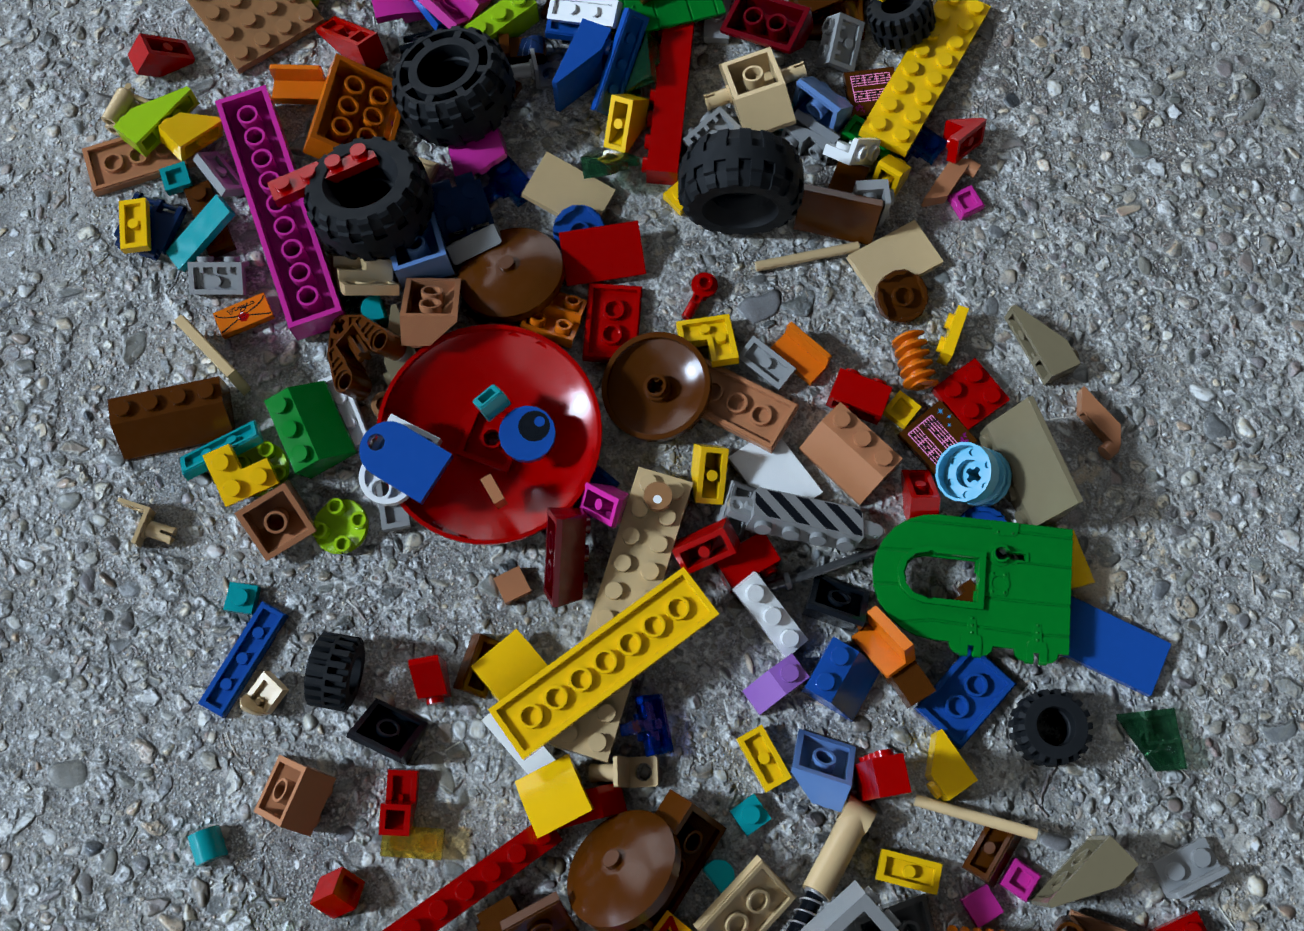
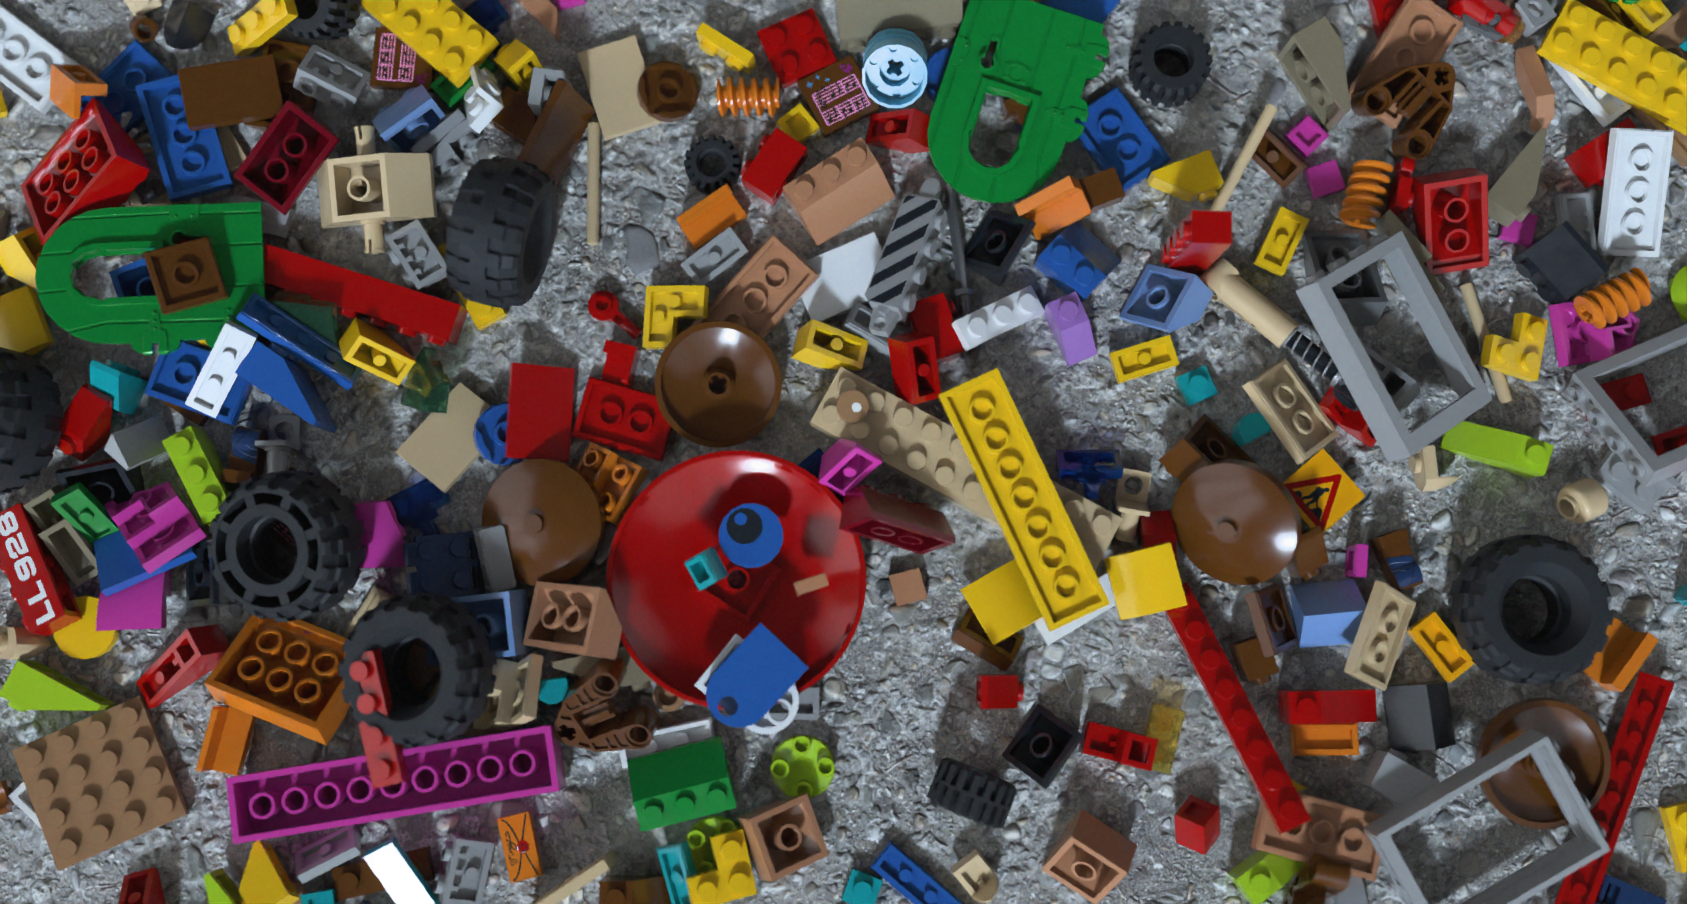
camera: 75 degrees left, 10 degrees up
(658, 309) = (620, 363): none -> red panel
(855, 333) = (708, 147): none -> black tyre

